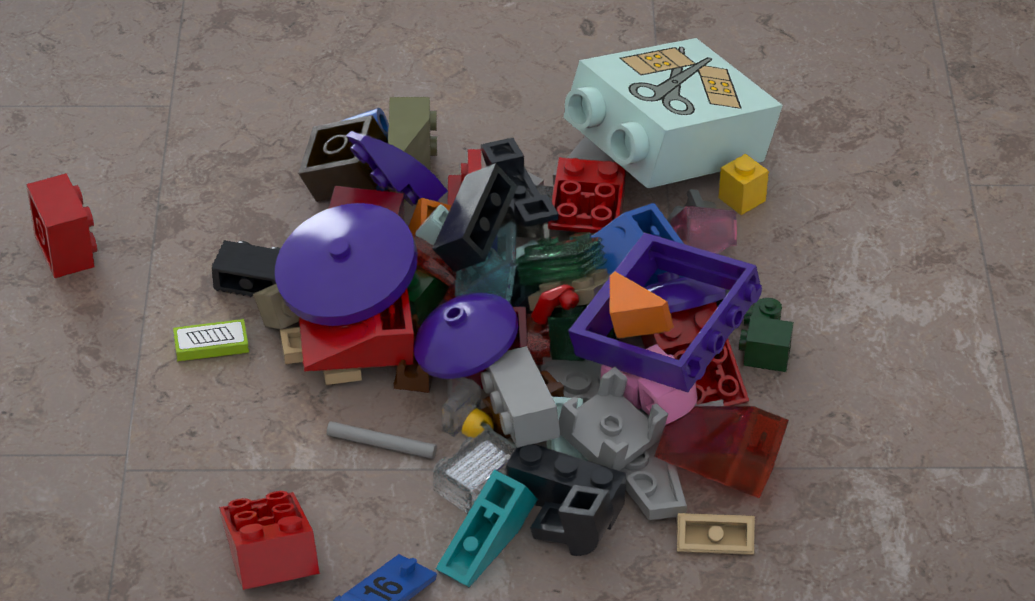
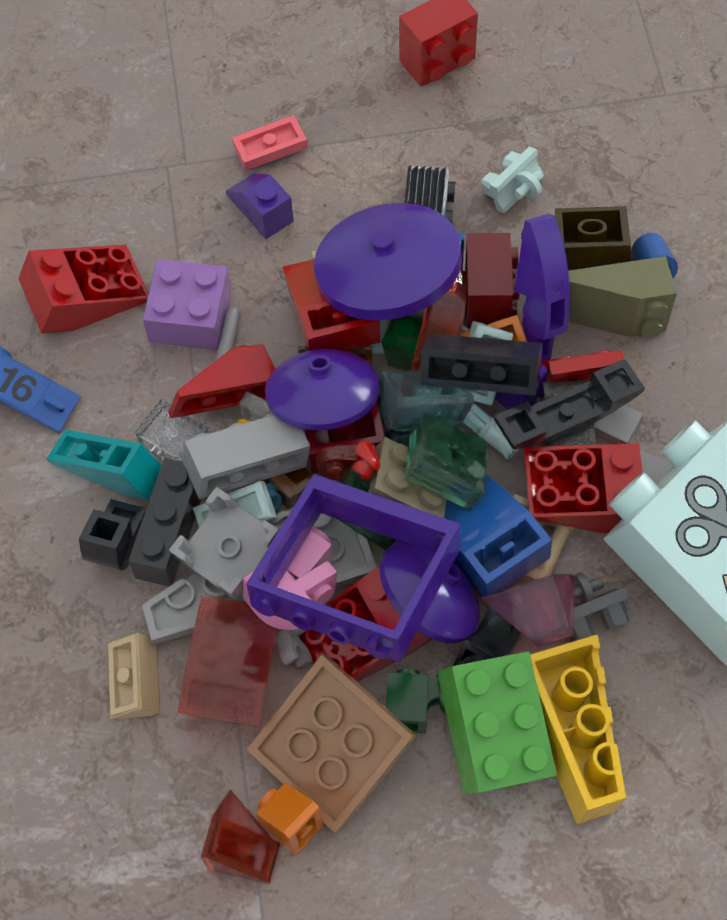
camera: 85 degrees right, 20 degrees up
(133, 377) = (269, 142): none -> coral plate
(206, 387) = (263, 203): none -> dark purple slope
(210, 340) = (332, 192): tile -> none
(248, 203) = (517, 180): none -> light aqua hips
(319, 451) = (187, 304): none -> medium lavender brick
(424, 419) = (225, 382): none -> red slope
(636, 309) = (327, 521): orange slope -> none
(743, 184) = (665, 650): yellow brick -> none
(805, 276) = (496, 723): none -> bright green brick
(806, 382) = (331, 742): none -> medium nougat plate
(808, 240) = (580, 727): none -> yellow wedge
(869, 417) = (289, 817): none -> orange slope
(881, 472) = (239, 843): none -> clear red slope

